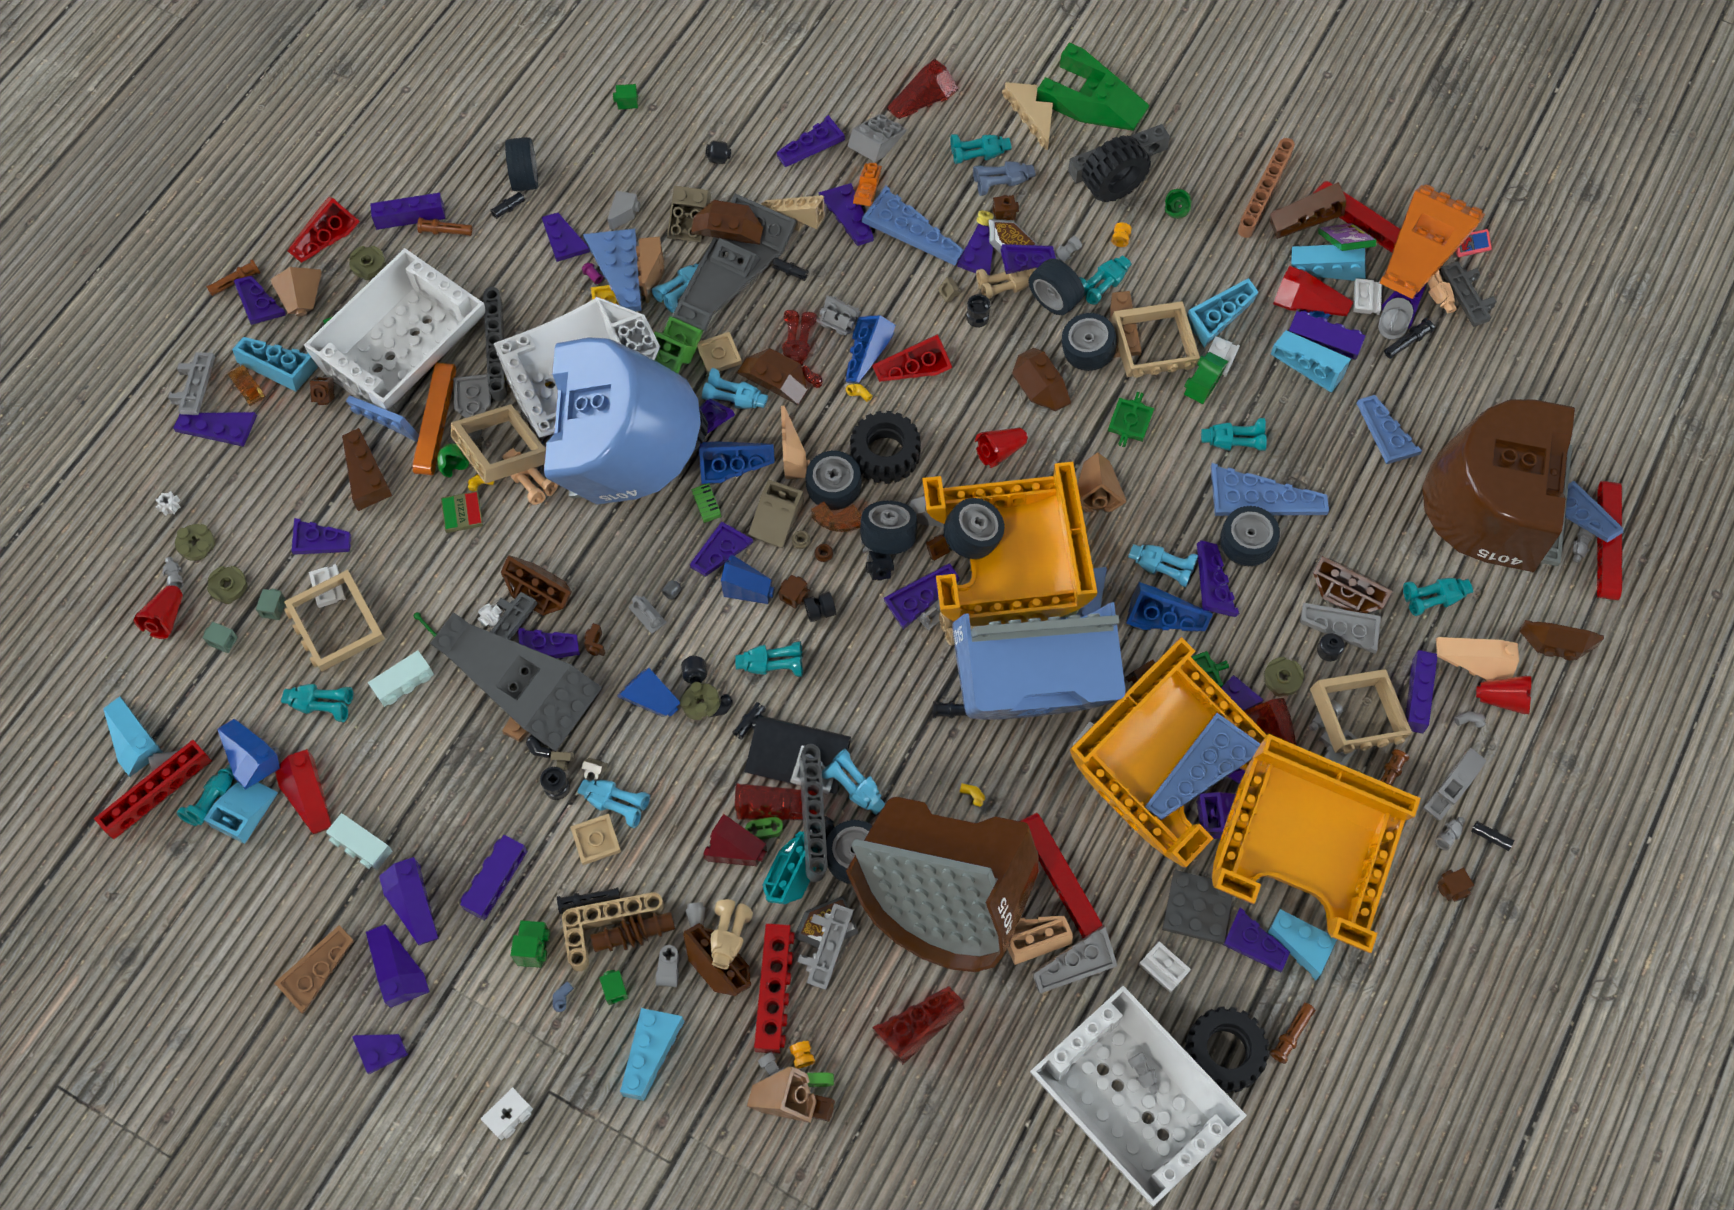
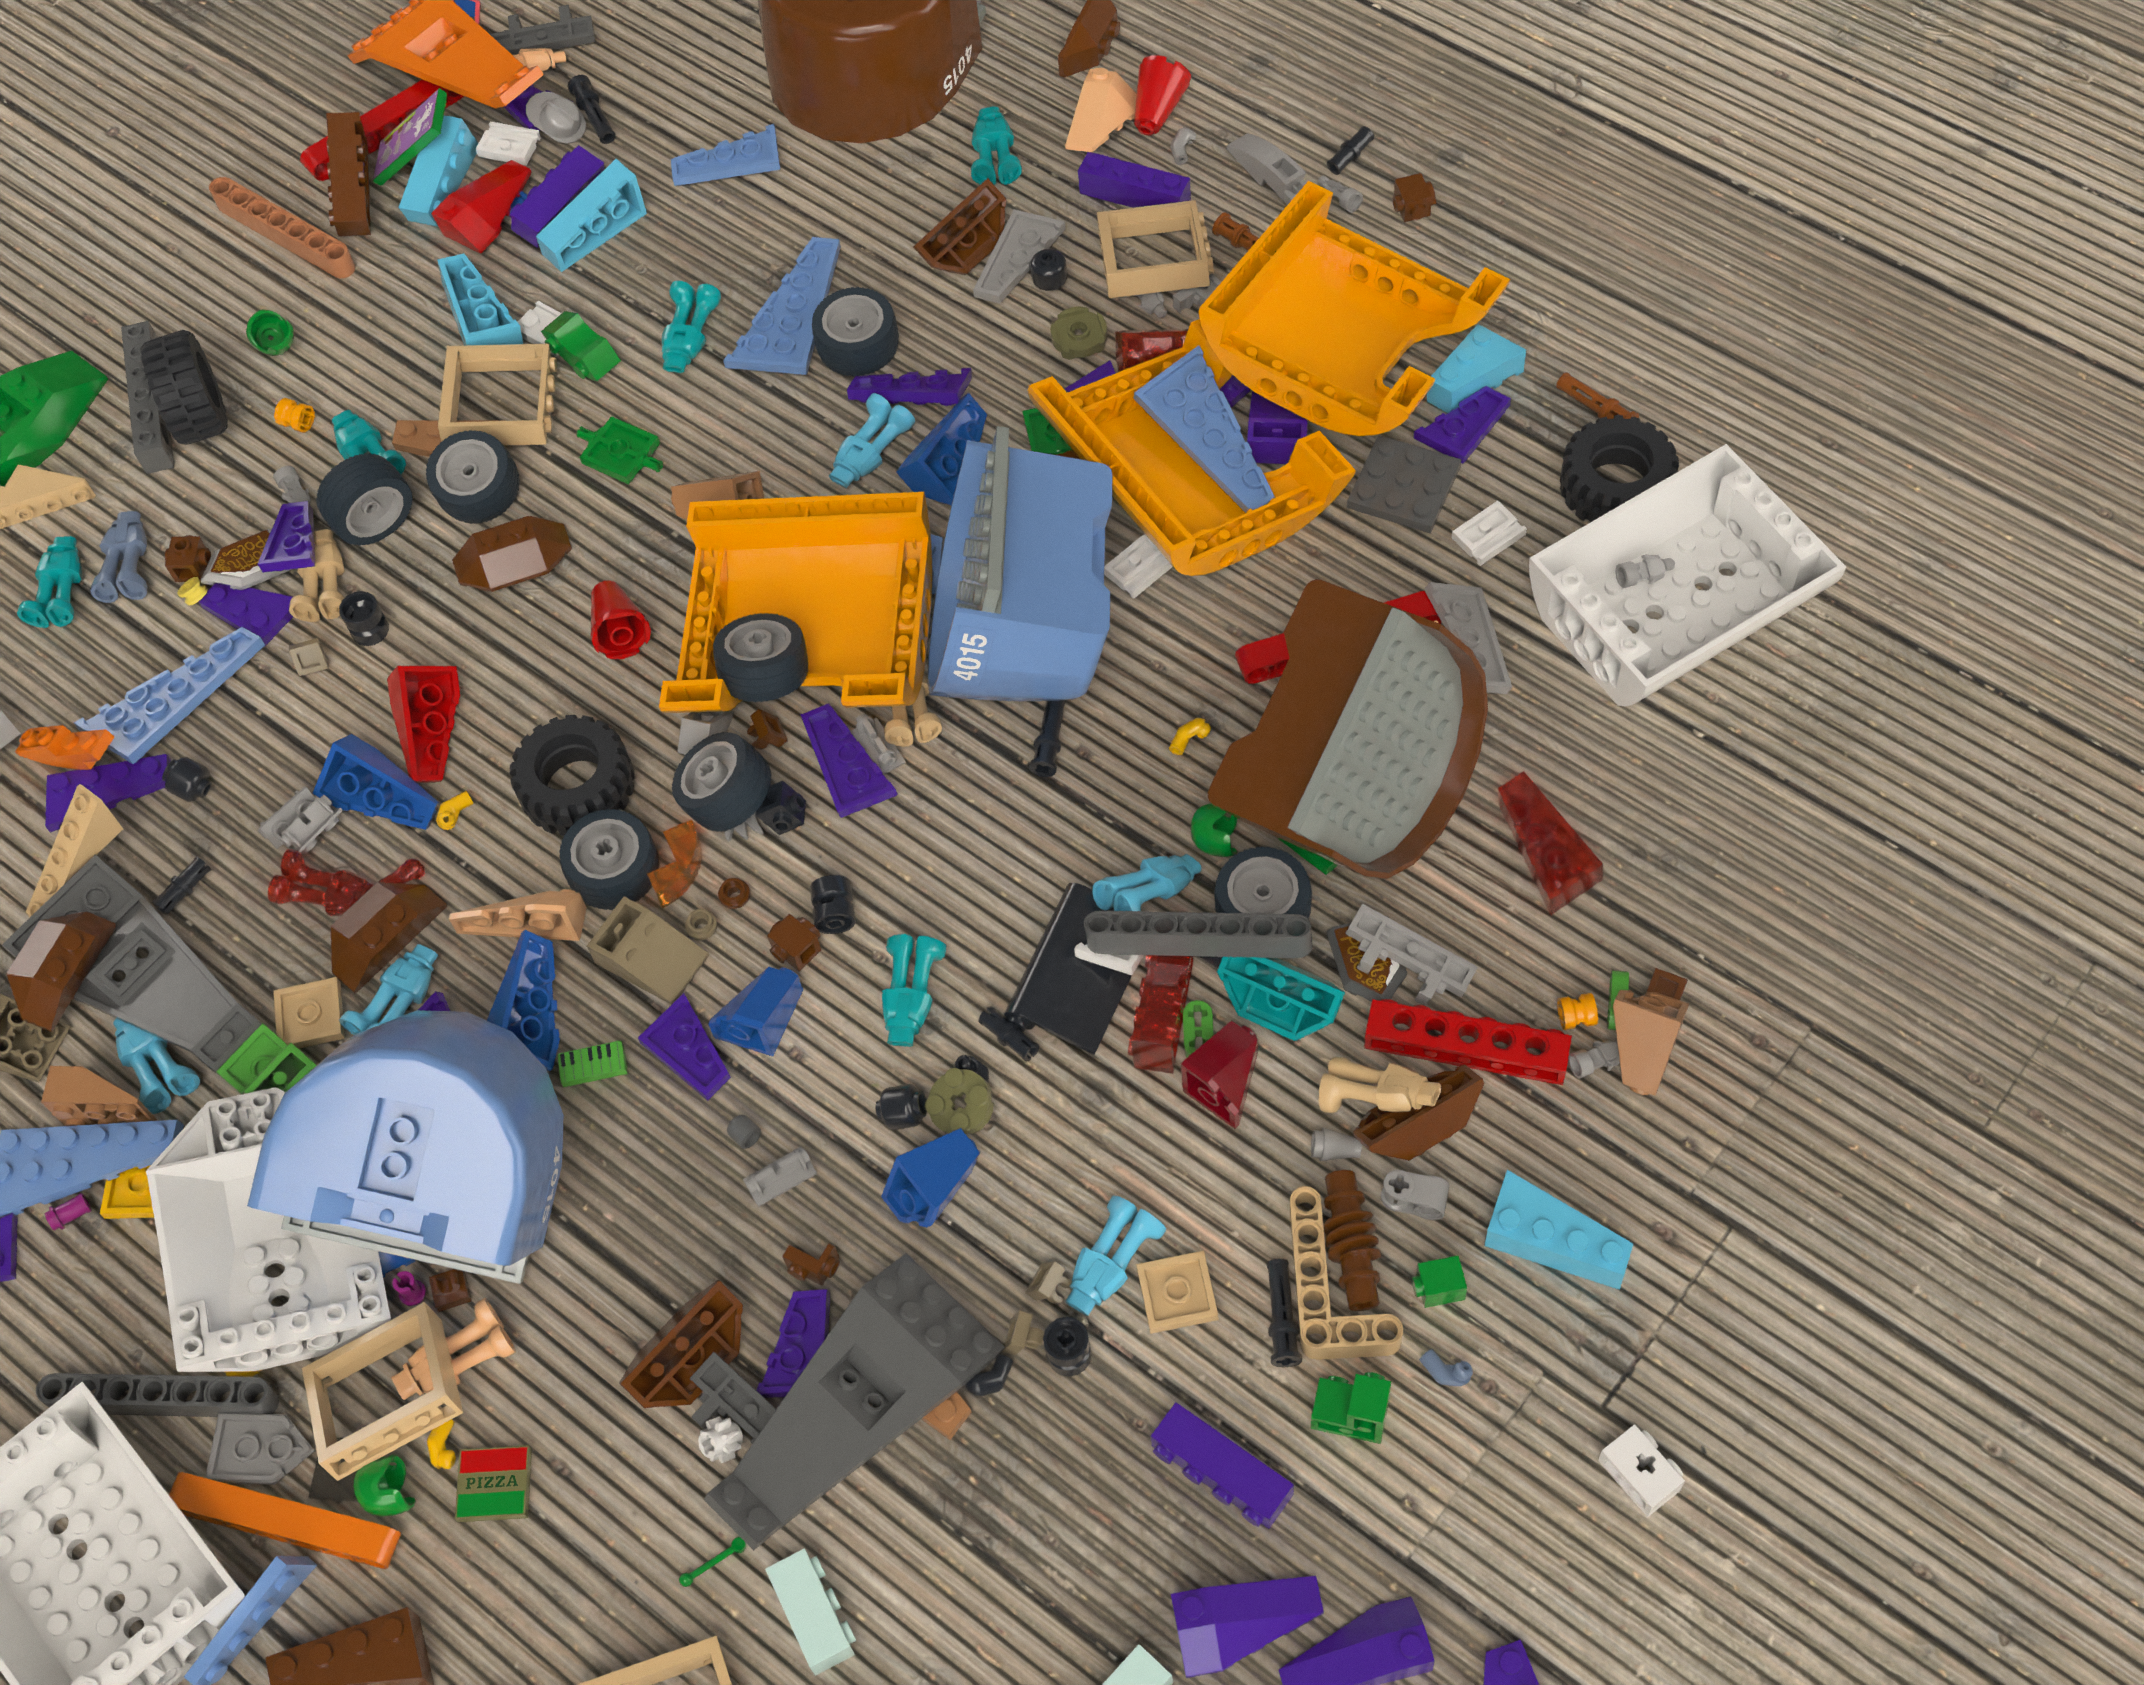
camera: 75 degrees left, 5 degrees down
(857, 251) = (187, 779): none -> black head

